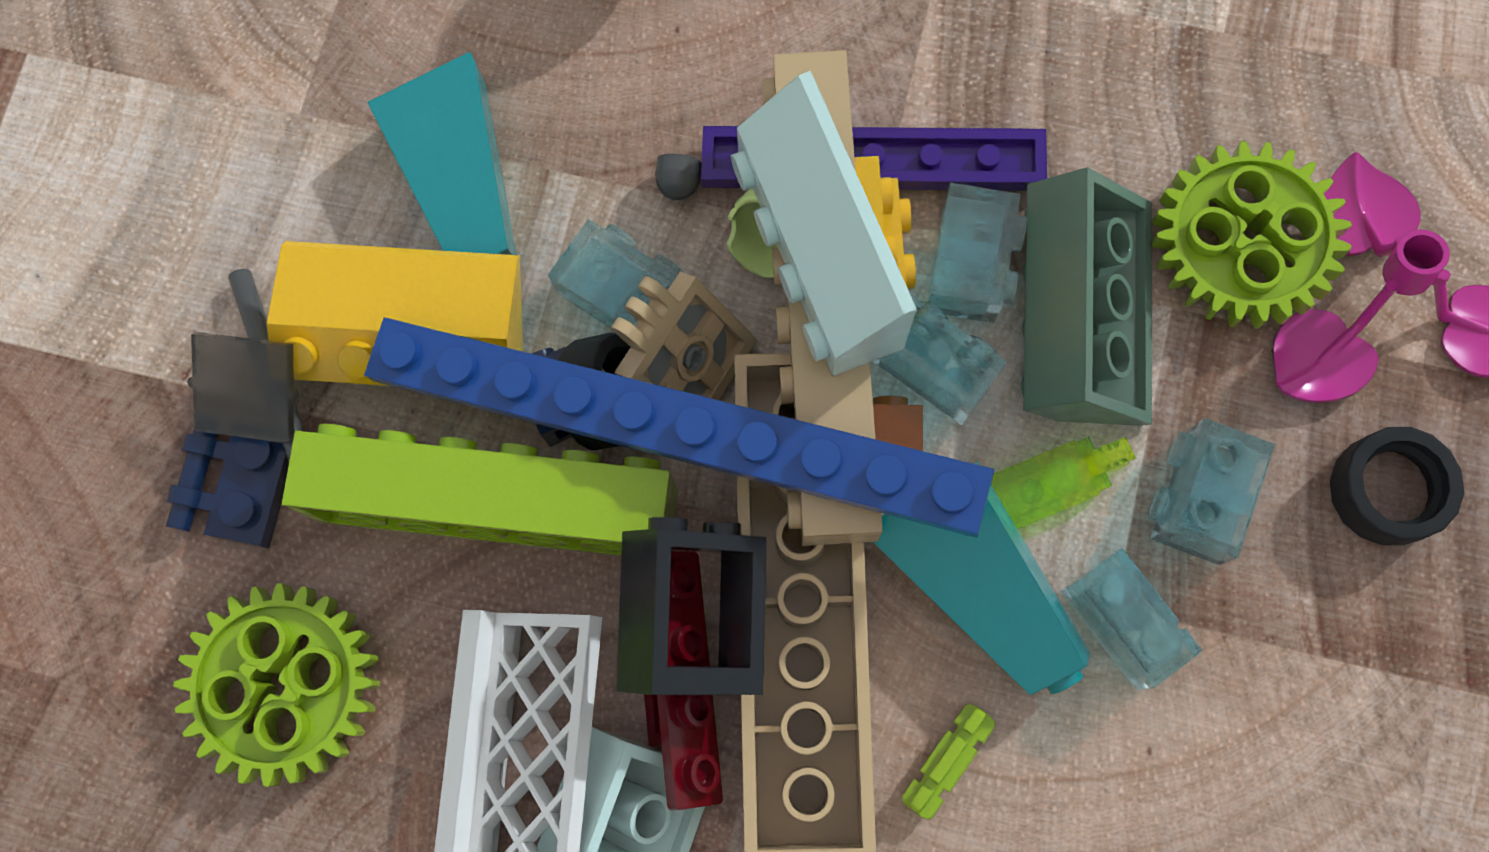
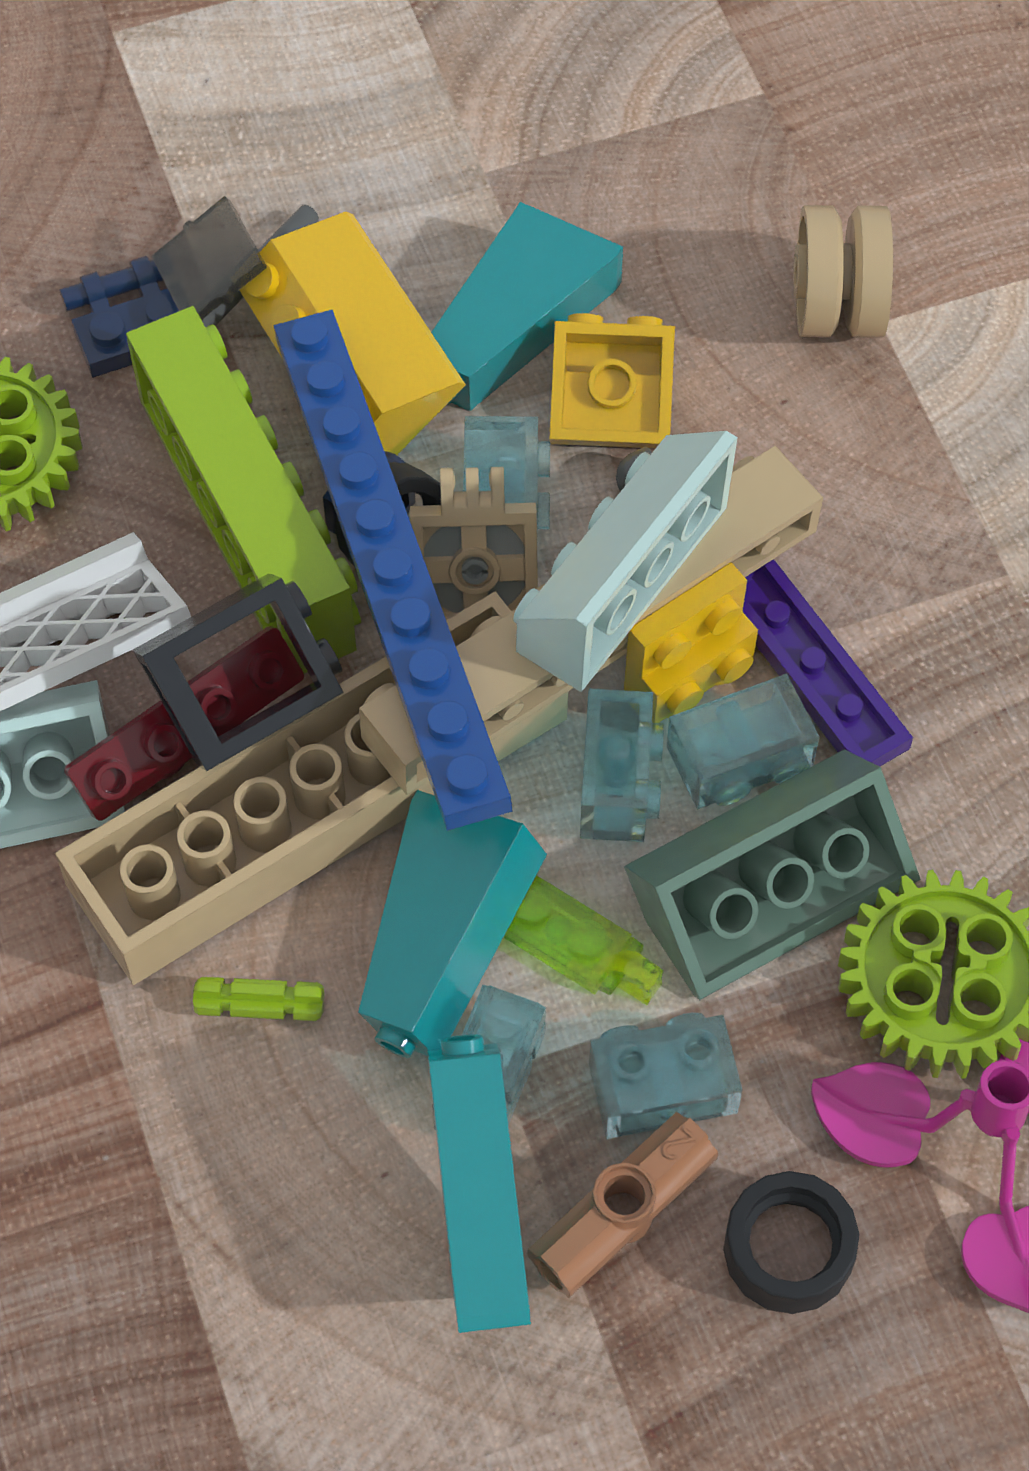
camera: 50 degrees right, 15 degrees down
(582, 142) = (611, 382): none -> yellow plate
(898, 421) = (531, 773): dark orange plate -> none
(1267, 702) = (478, 1185): none -> teal slope
(1307, 631) = (593, 1233): none -> nougat piece

